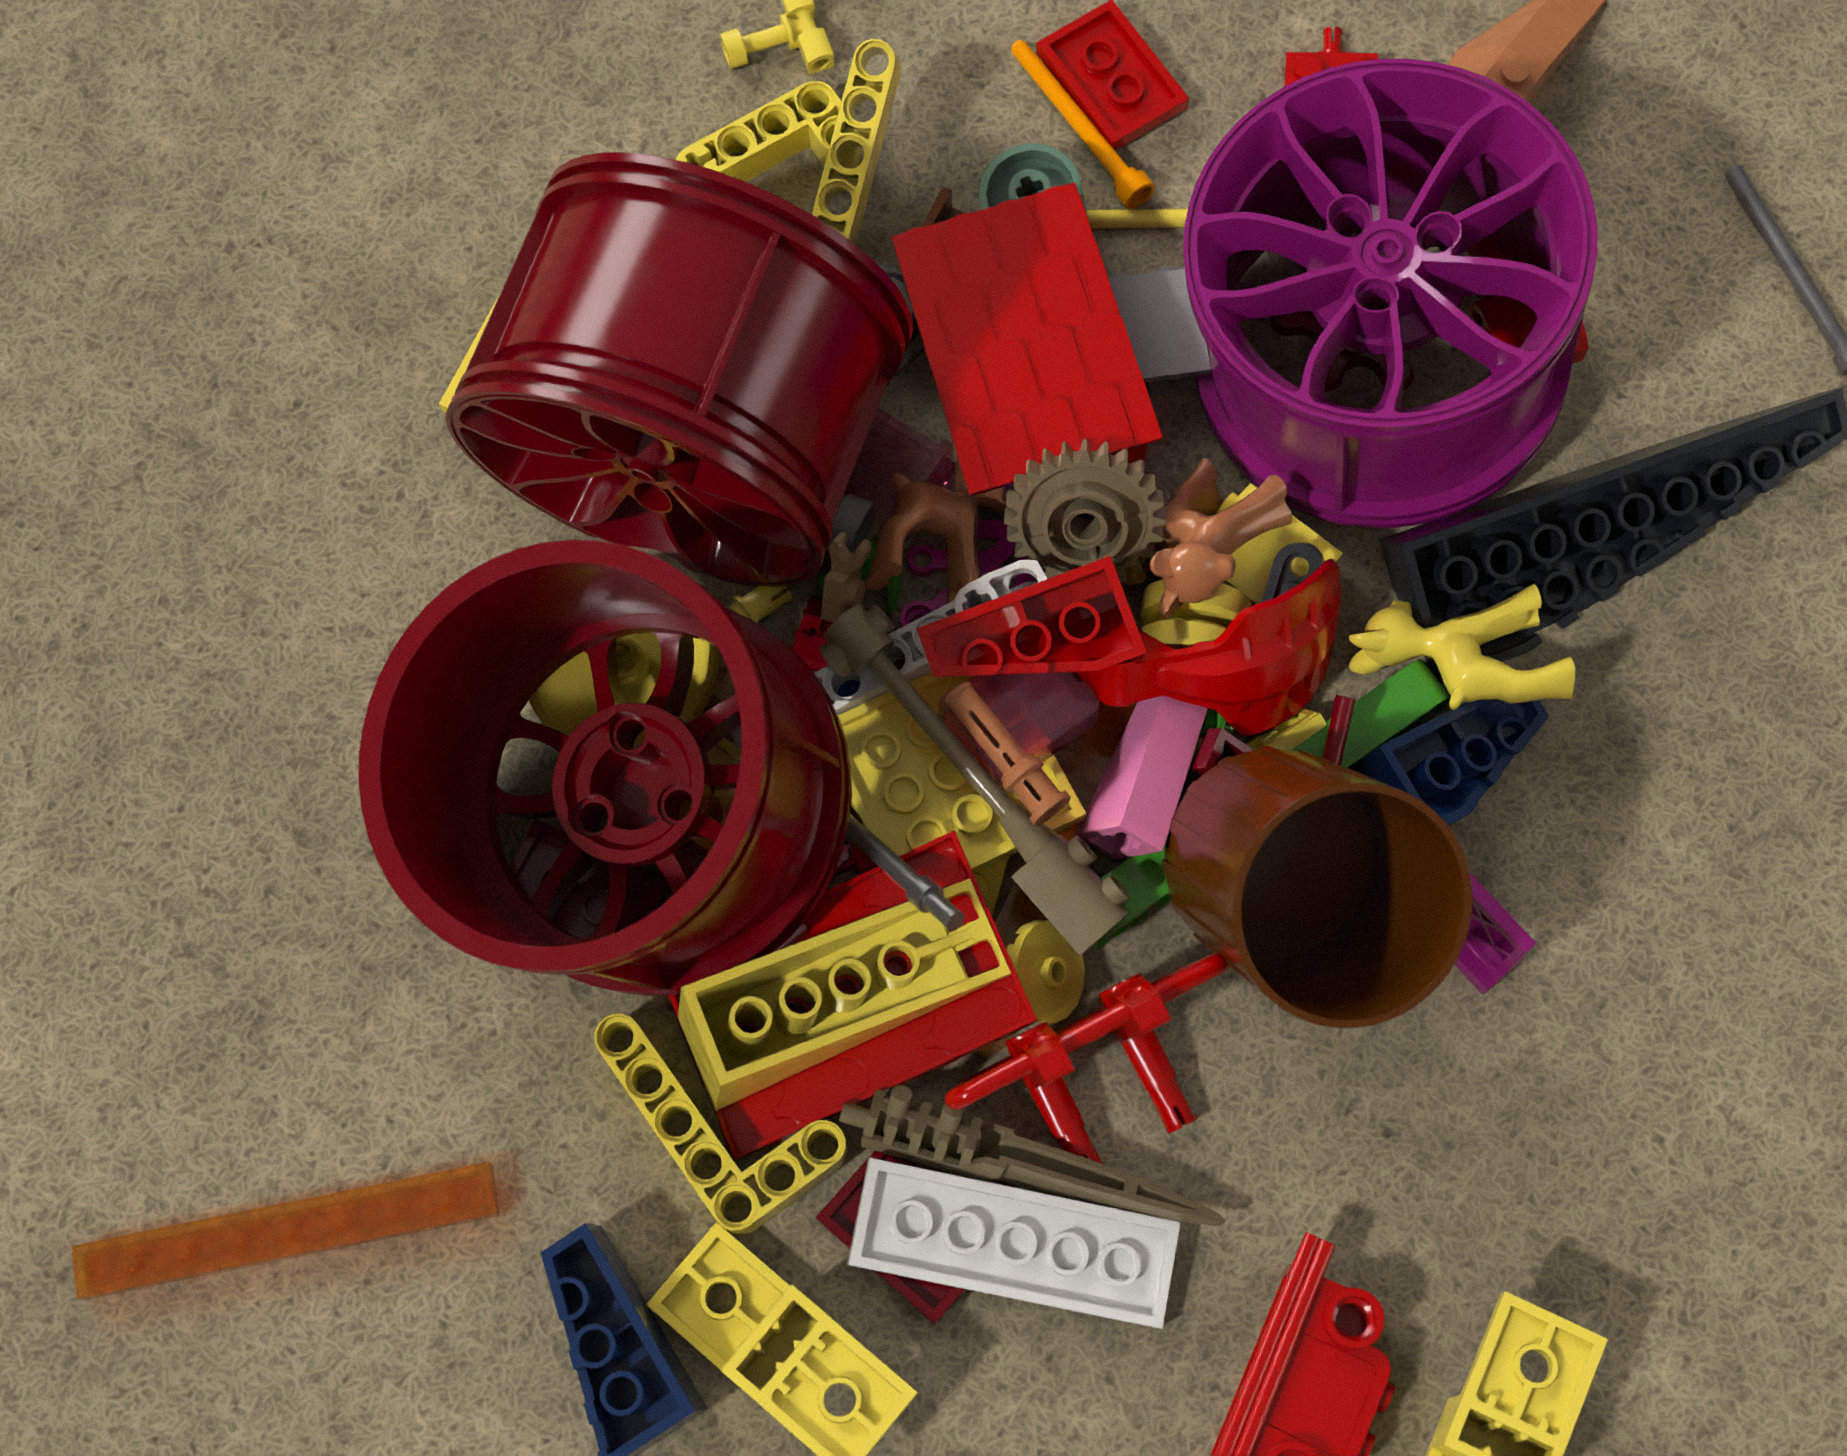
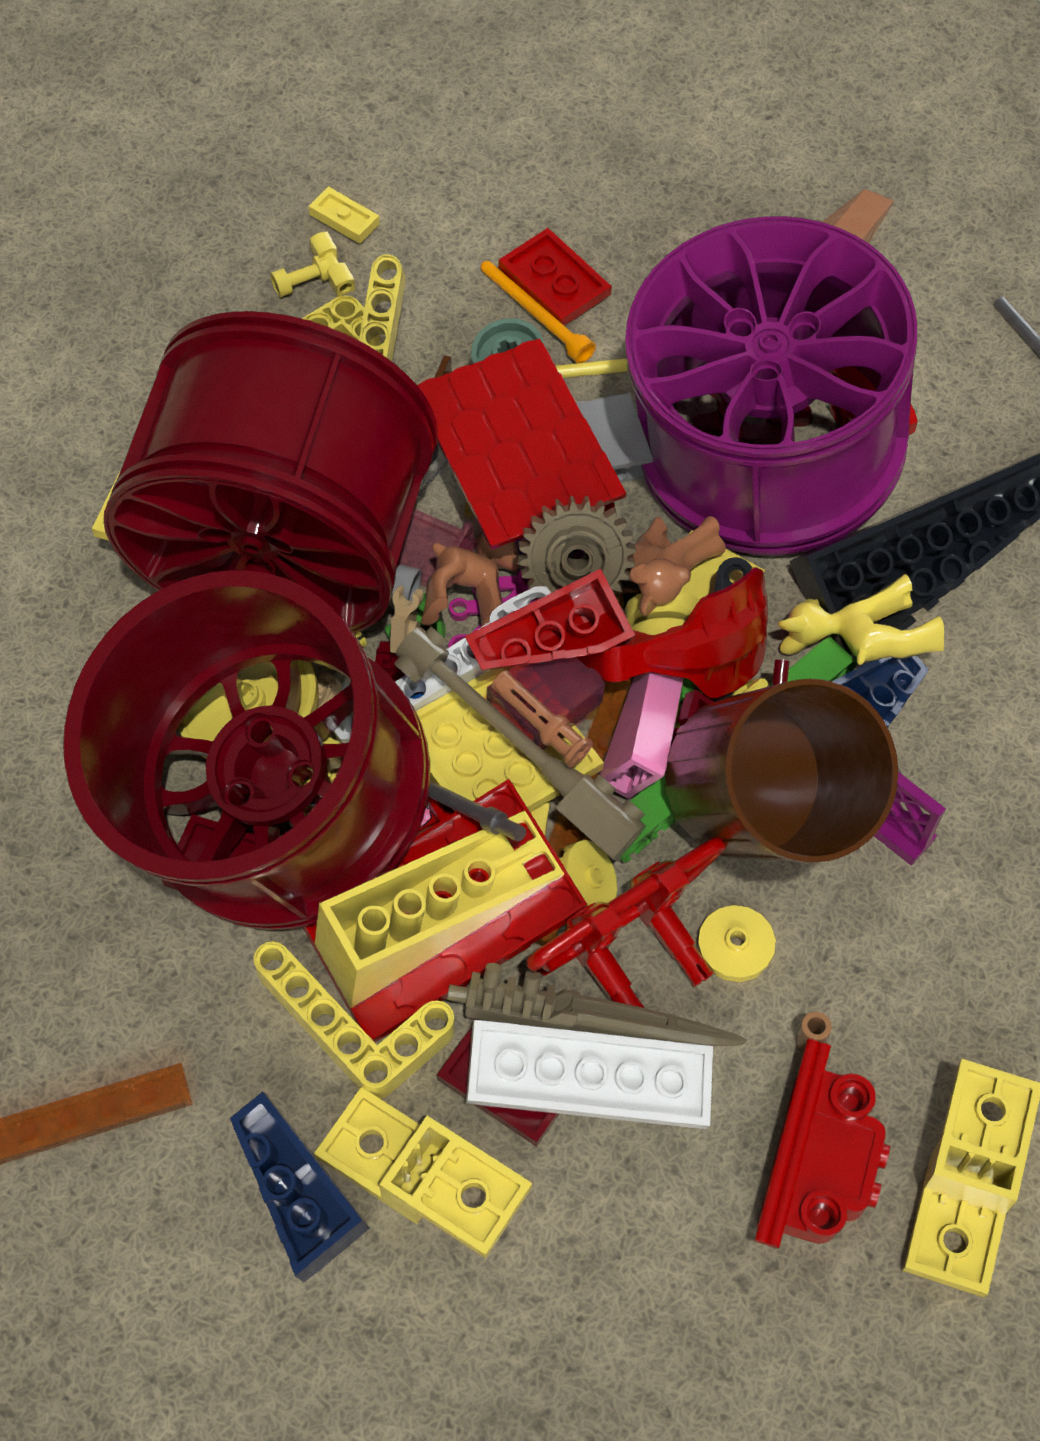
camera: 10 degrees left, 10 degrees down
(1228, 1105) = (733, 961): none -> light yellow plate
(1325, 1208) = (813, 1023): none -> medium nougat piece

